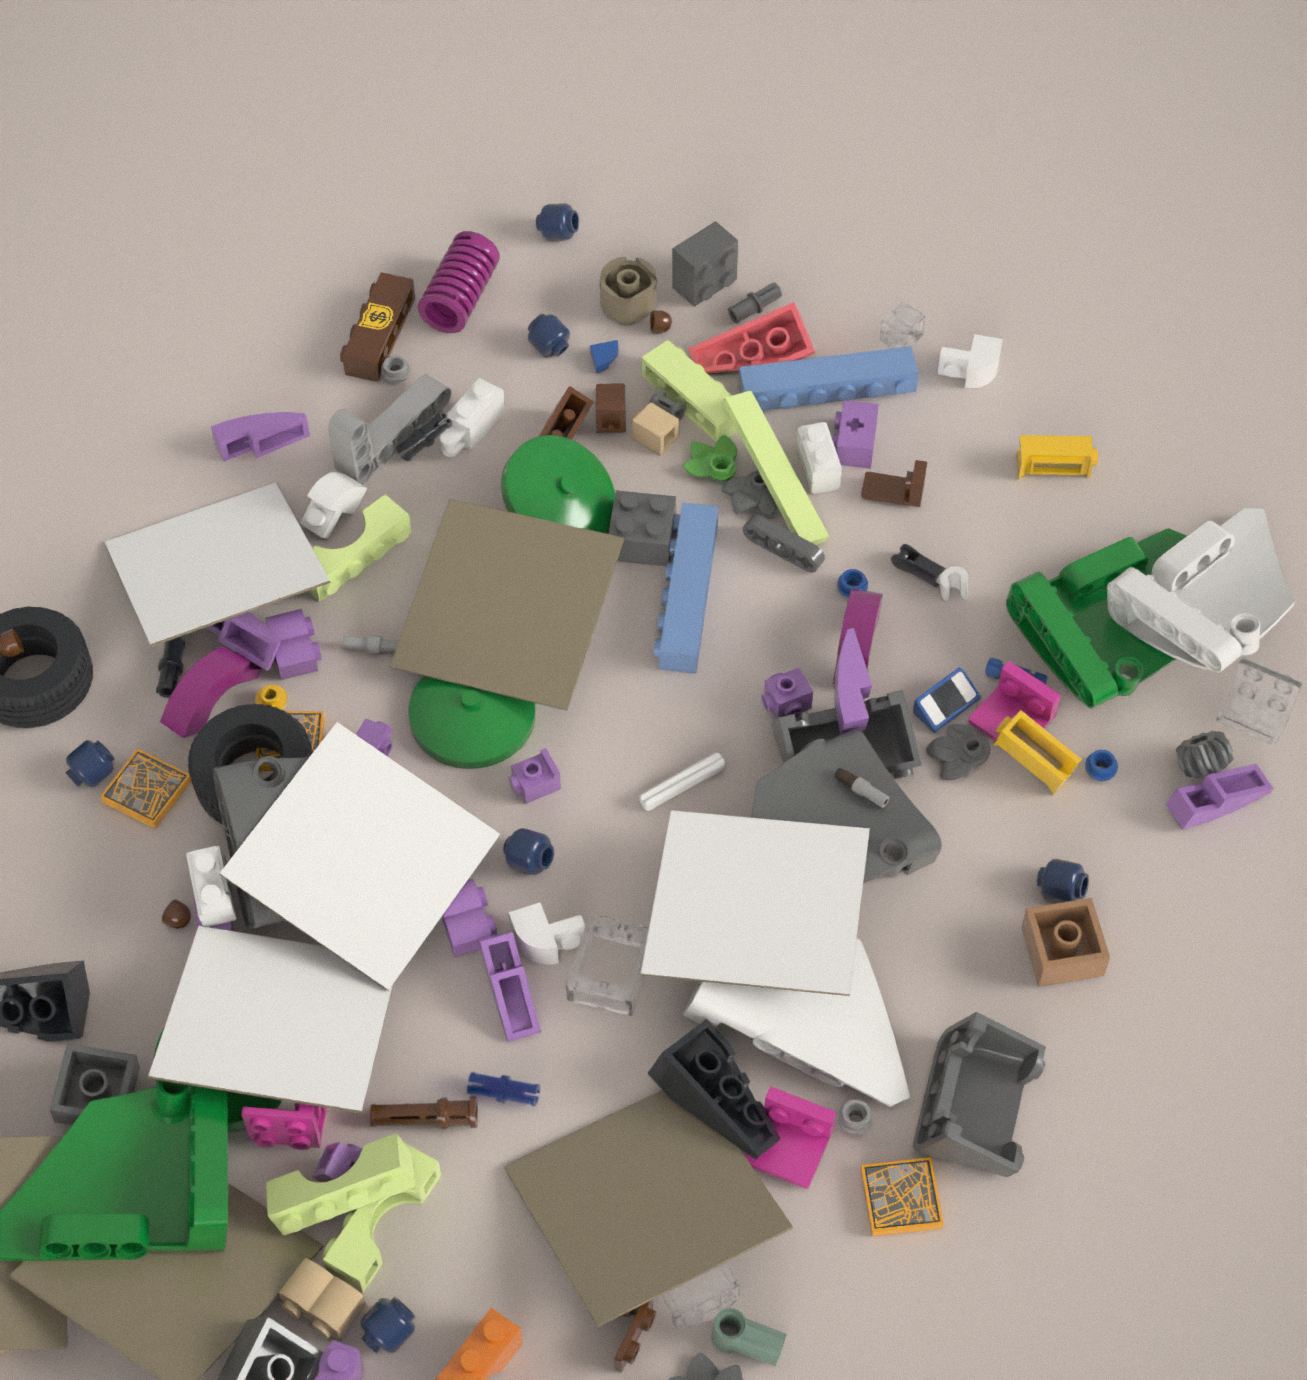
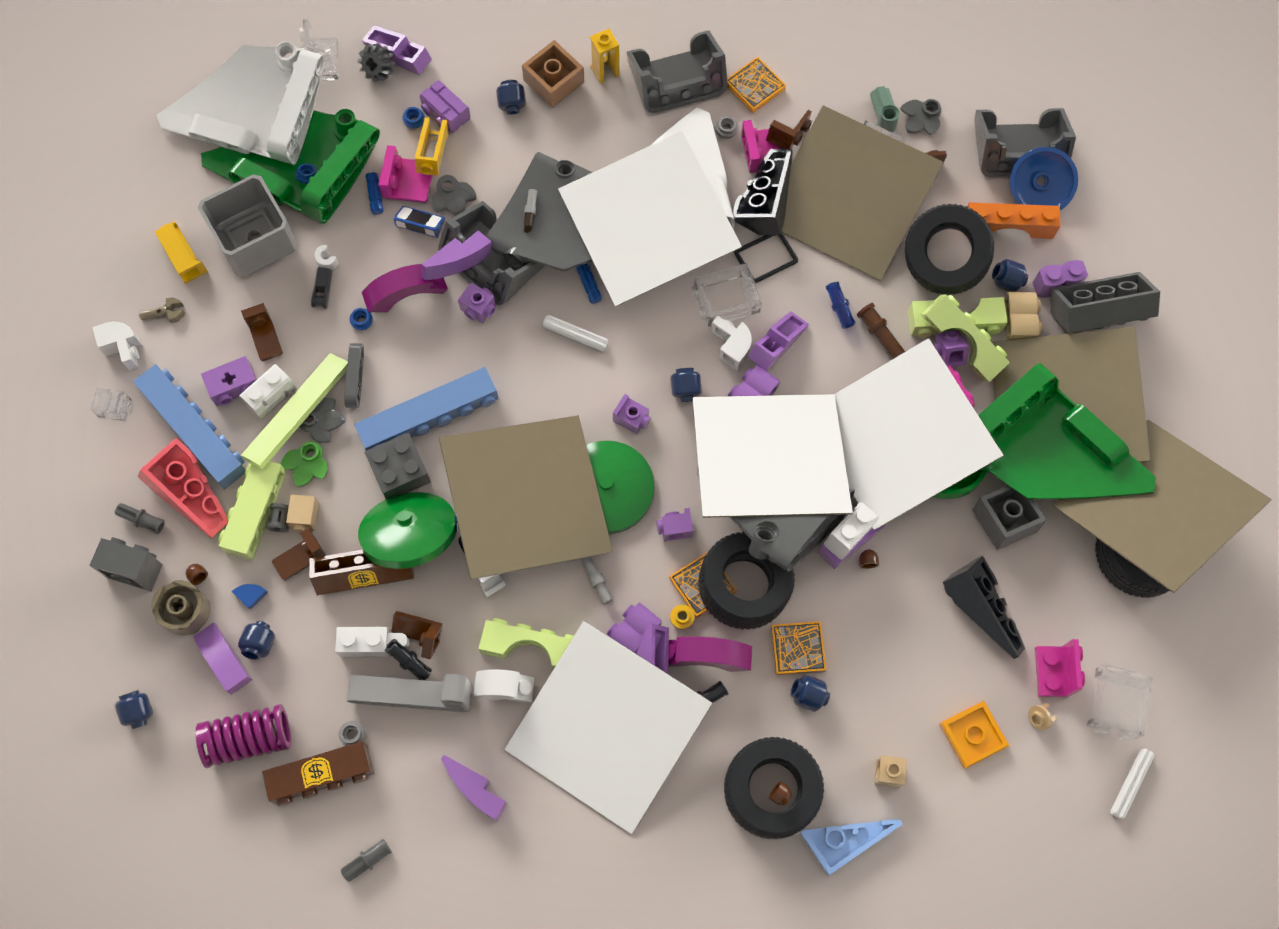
camera: 125 degrees left, 15 degrees up
(268, 329) = (365, 860): none -> dark grey axle
(430, 463) = (419, 629): none -> reddish brown bracket
(475, 1279) = (942, 218): none -> black tyre
(566, 303) = (222, 659): none -> medium lavender slope
(608, 1049) = (768, 274): none -> black piece
(791, 1161) = (786, 137): none -> reddish brown bracket
(990, 419) = (165, 311): none -> dark tan bar
(1033, 511) = (242, 212): none -> light grey plate
(1050, 1007) = (604, 51): none -> yellow window
(1089, 610) = (304, 172): none -> blue plate
(1094, 802) = (444, 105): none -> medium lavender brick

